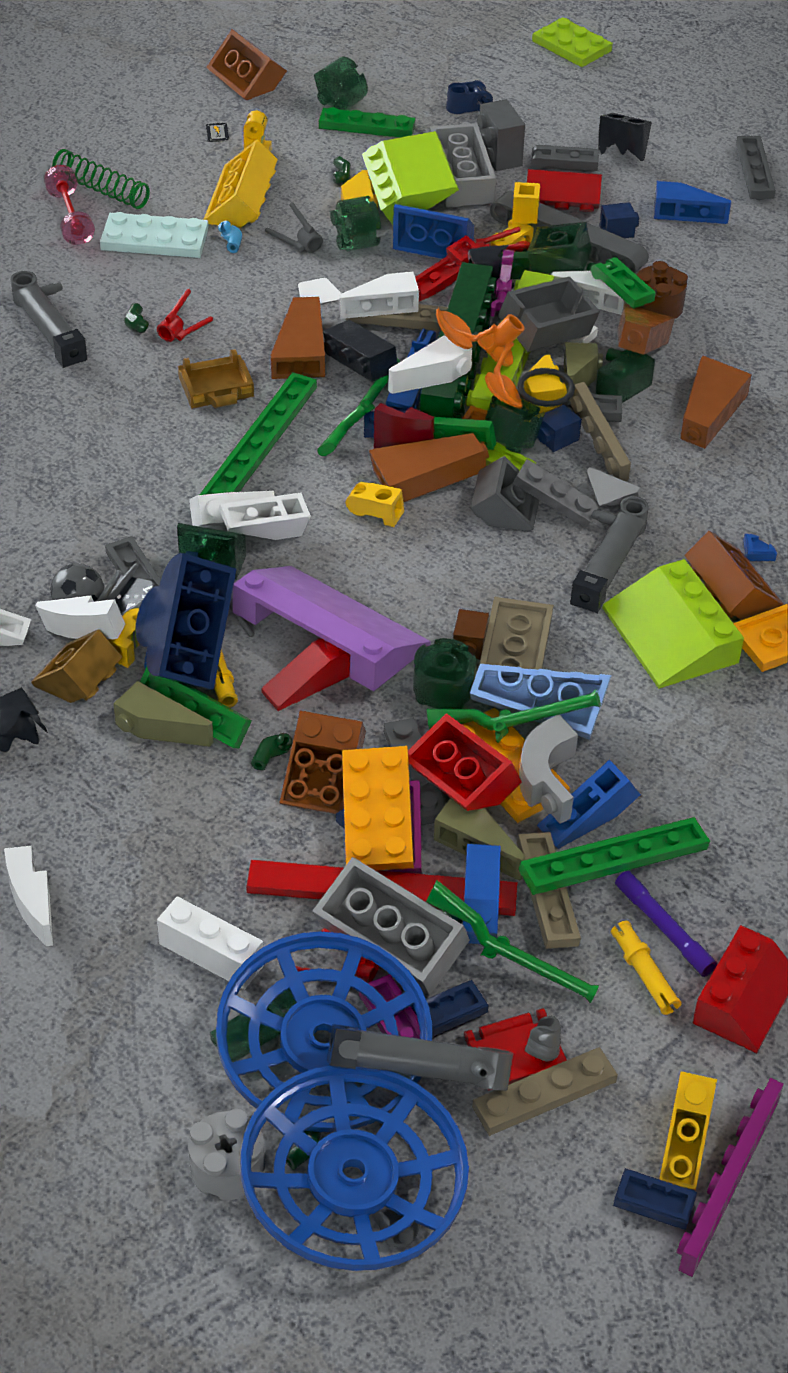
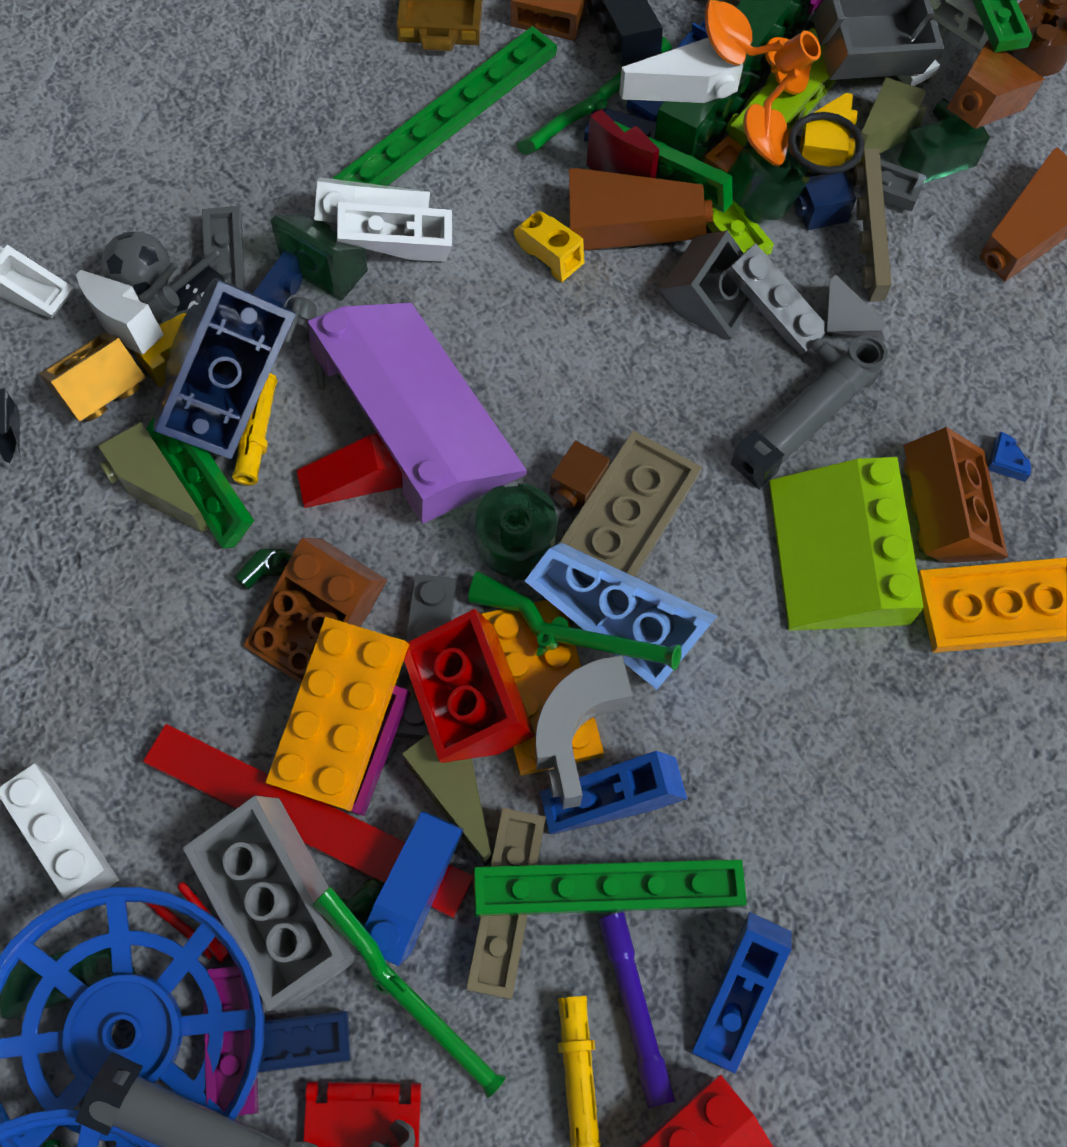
camera: 20 degrees right, 20 degrees up
(731, 885) = (743, 991): none -> blue slope

